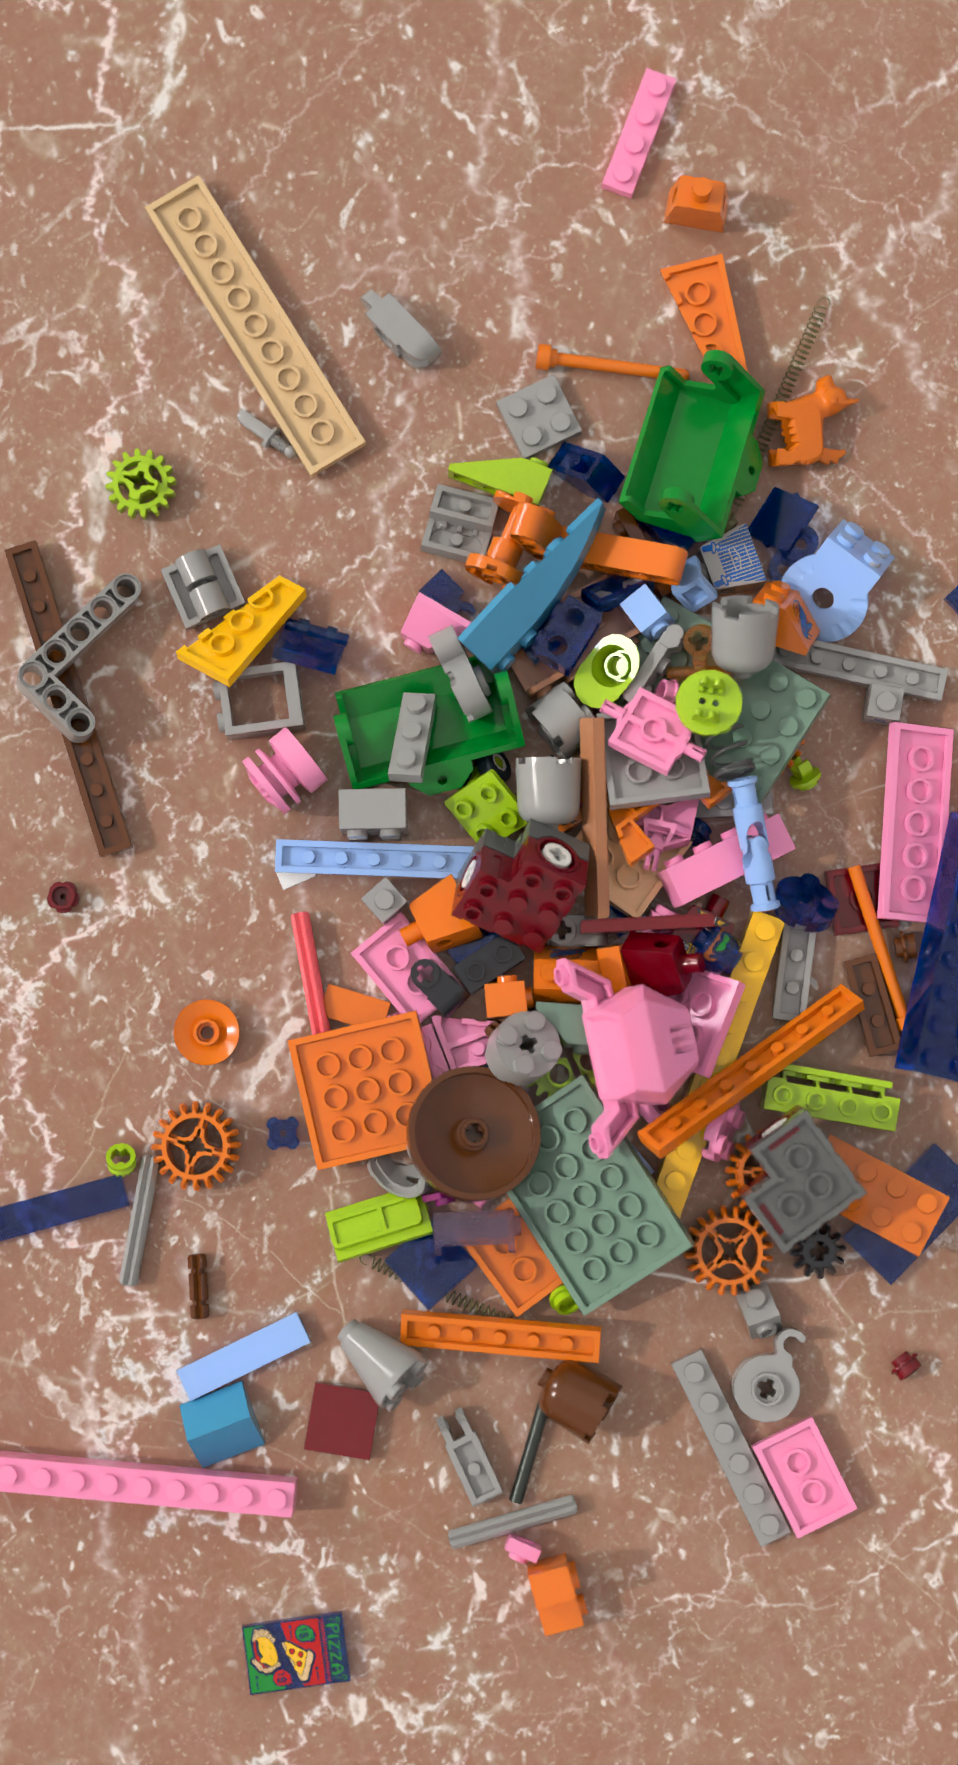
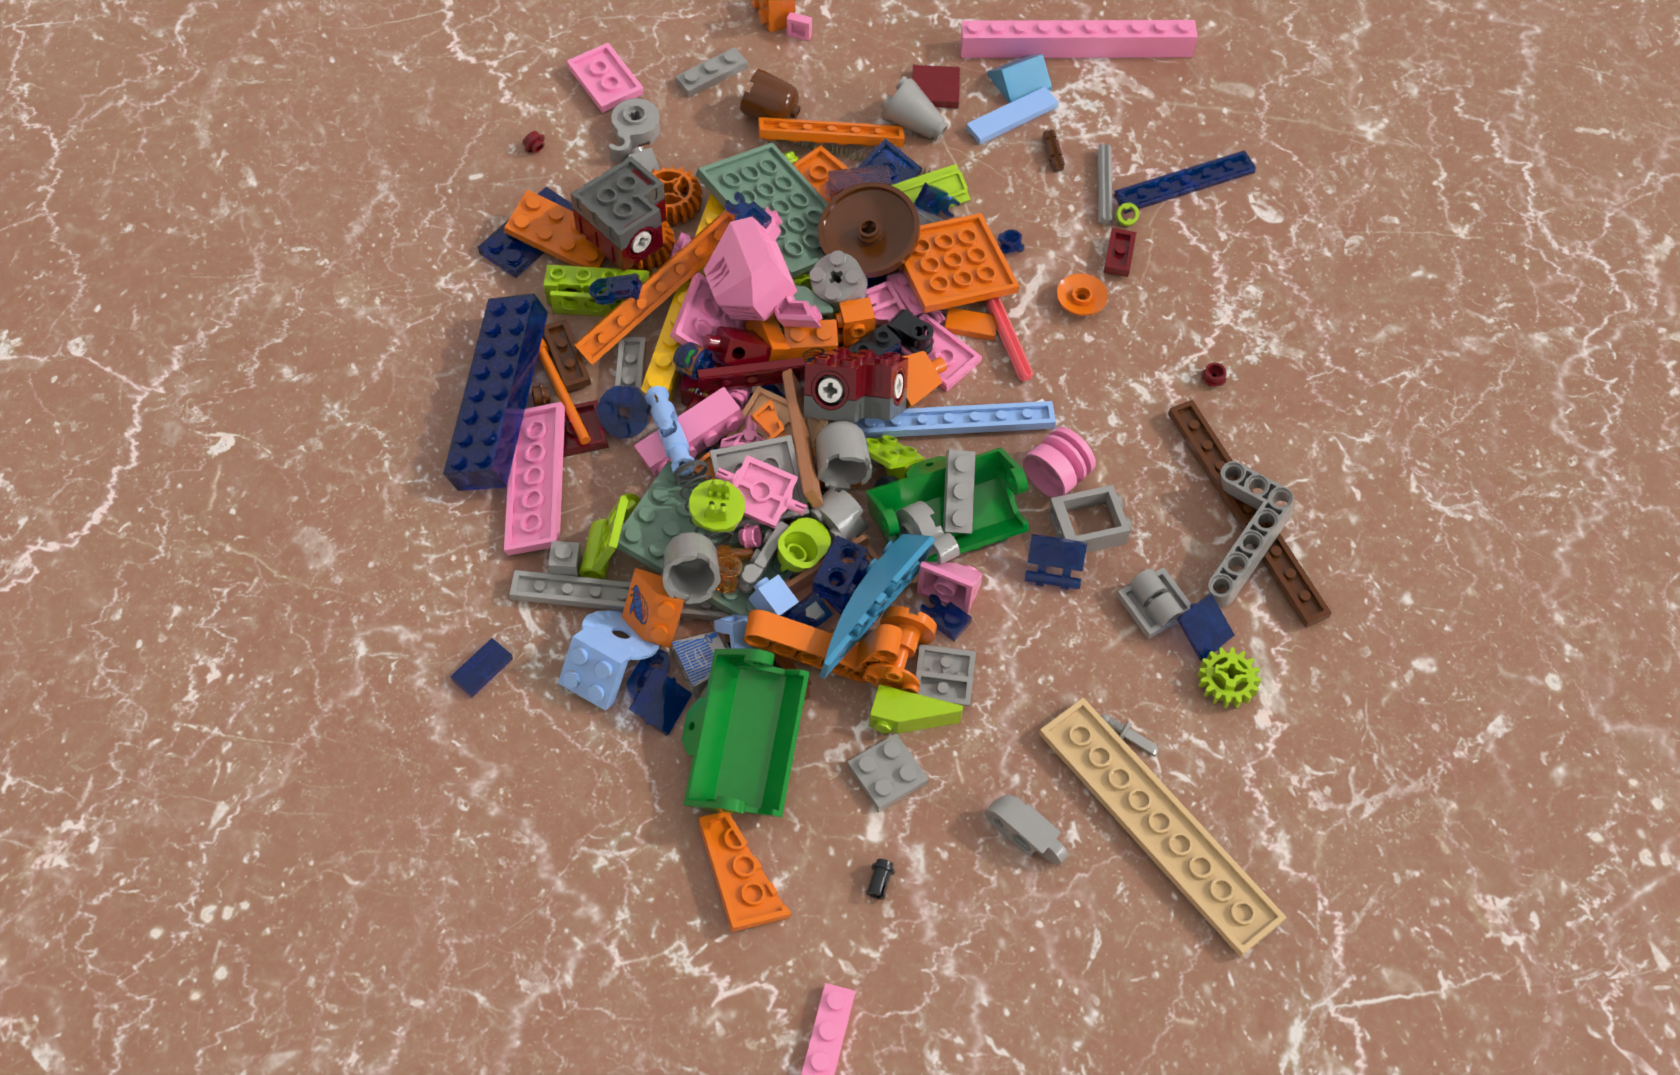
camera: 170 degrees right, 25 degrees down
(143, 1099) = (1120, 252): none -> dark red plate
(154, 546) = (1205, 626): none -> clear blue piece
(190, 1160) = (1088, 230): orange gear -> none
(244, 632) = (1117, 557): yellow wing -> none
(373, 813) = (982, 432): light grey brick -> none
(376, 1199) = (935, 199): none -> clear blue plate
(384, 901) = (961, 387): light grey brick -> none
(470, 1461) = (843, 71): light grey hinge -> none
(512, 1522) = (807, 42): light grey axle -> none
(528, 1456) = (802, 72): pearl dark grey bar -> none
(549, 358) = (885, 823): orange piece -> none
(559, 303) = (880, 878): none -> black pin
(587, 471) = (839, 724): clear blue slope -> none
(633, 1130) = (744, 210): none -> clear blue plate
(653, 1478) = (711, 72): none -> light grey plate
(697, 203) = (761, 973): orange torso -> none
(730, 1447) = (661, 94): light grey plate -> none
(791, 378) = (660, 832): olive piece -> none
(803, 425) = (646, 781): orange animal -> none
(808, 1064) = (617, 288): none -> clear blue piece
(838, 713) = (603, 541): none -> lime piece

